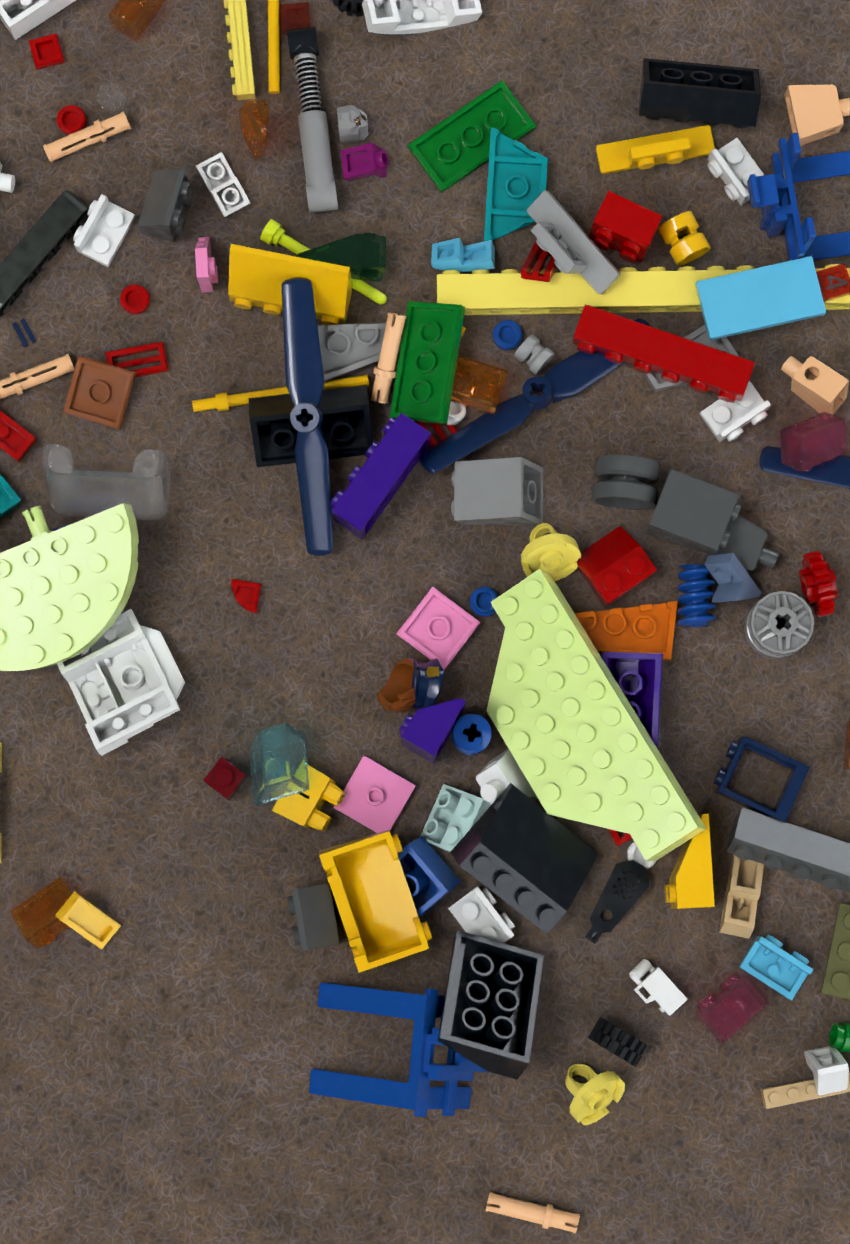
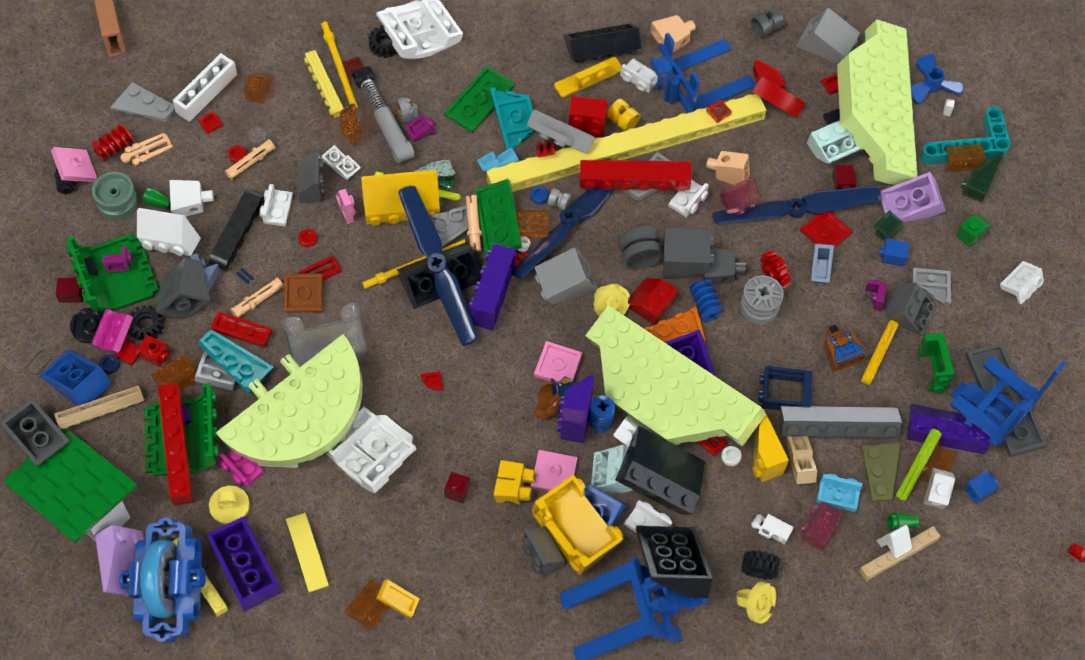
camera: 20 degrees left, 20 degrees down
(278, 763) = (487, 465): clear light blue slope -> none
(480, 601) = (580, 342): blue plate -> none
(613, 901) = (726, 487): black piece -> none
(731, 577) = (723, 281): sand blue slope -> none
(760, 298) = (680, 130): medium azure tile -> none

